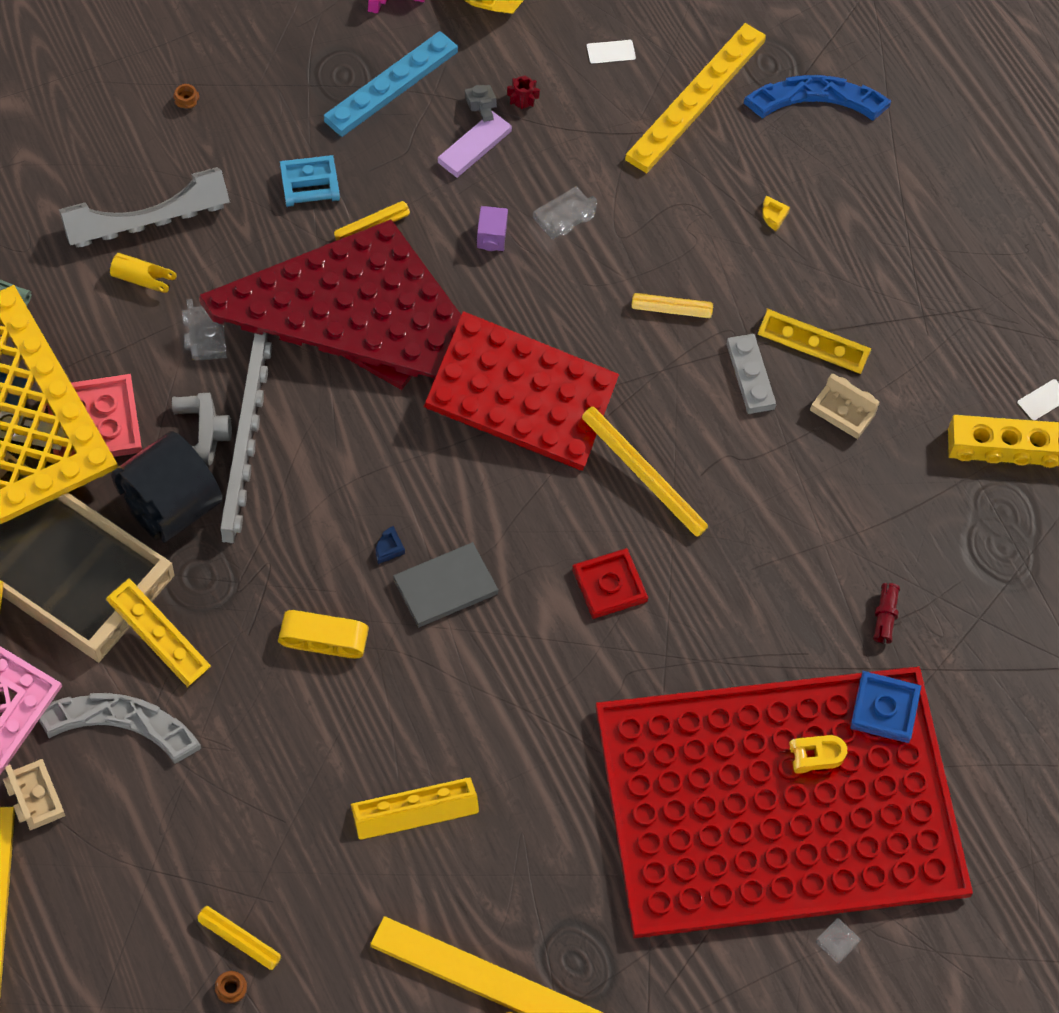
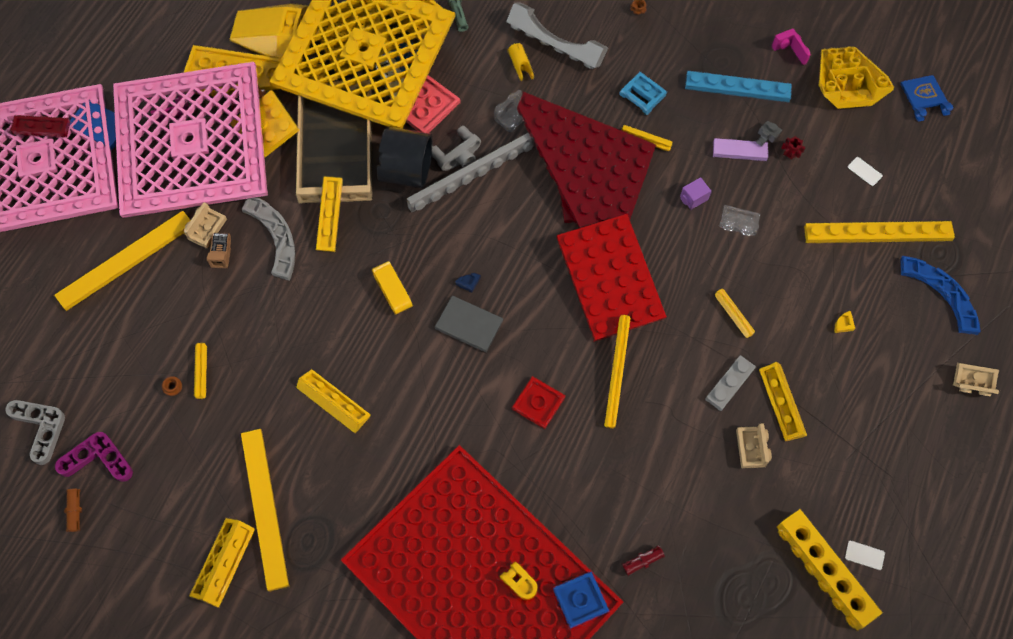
camera: 55 degrees right, 5 degrees up
(86, 800) = (219, 250): none -> medium nougat leg
(939, 146) = (976, 378): none -> tan bracket

